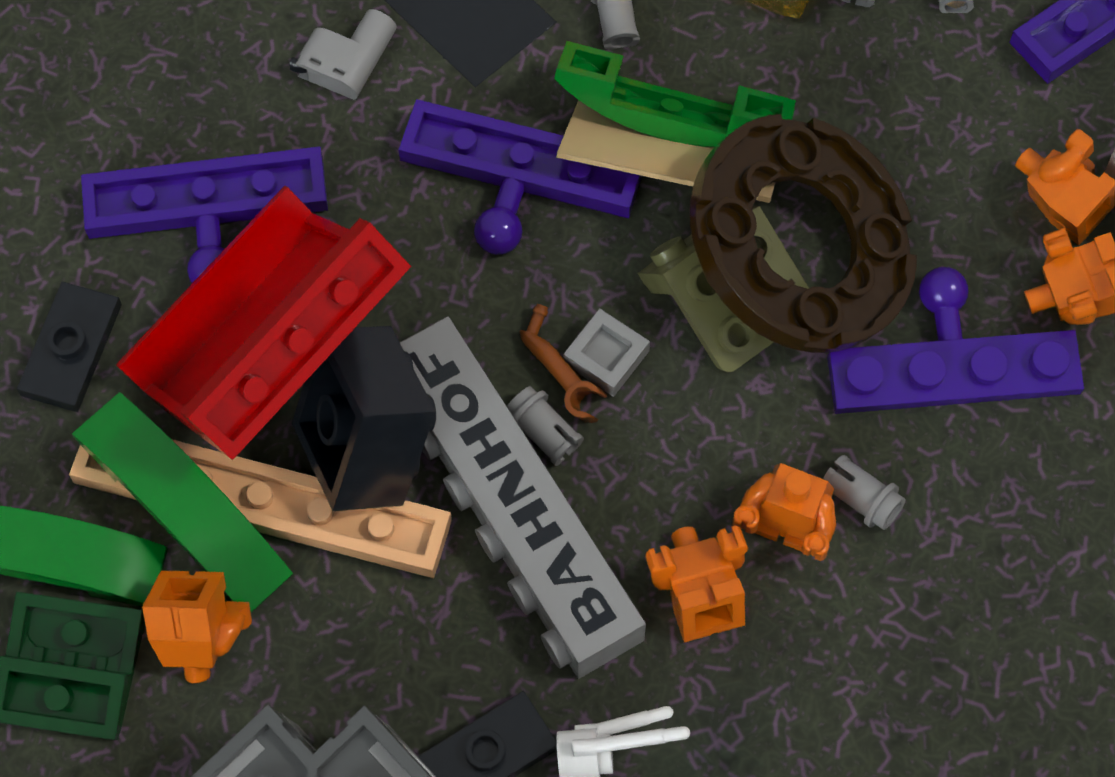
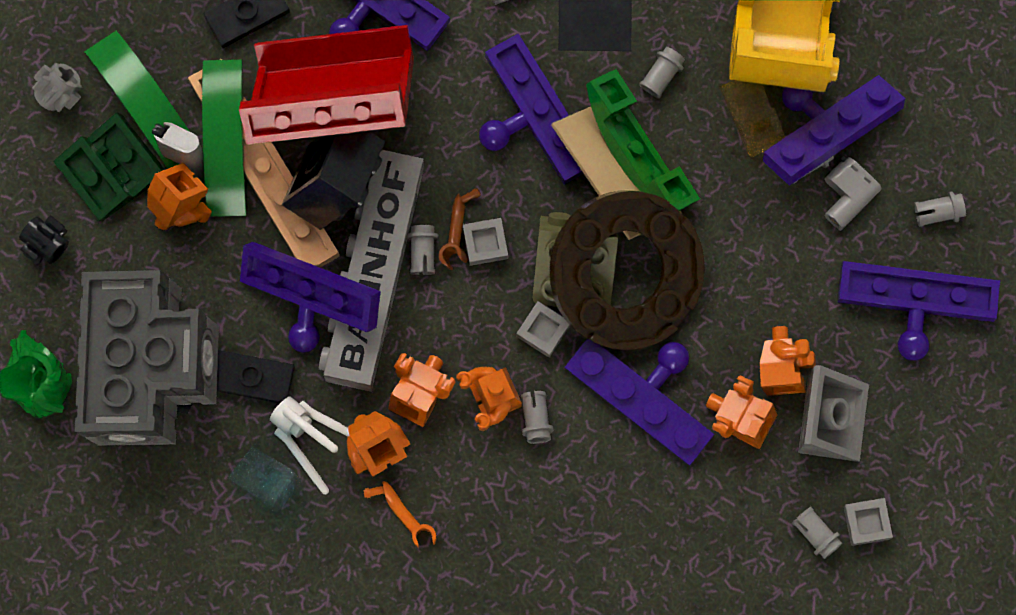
camera: 40 degrees right, 10 degrees up
(138, 554) = (180, 147): none -> light grey piece
(465, 577) = (312, 290): none -> dark purple plate
(716, 688) = (375, 443): none -> orange piece
(770, 388) = (543, 329): none -> light grey plate
(826, 746) = (400, 511): none -> orange piece

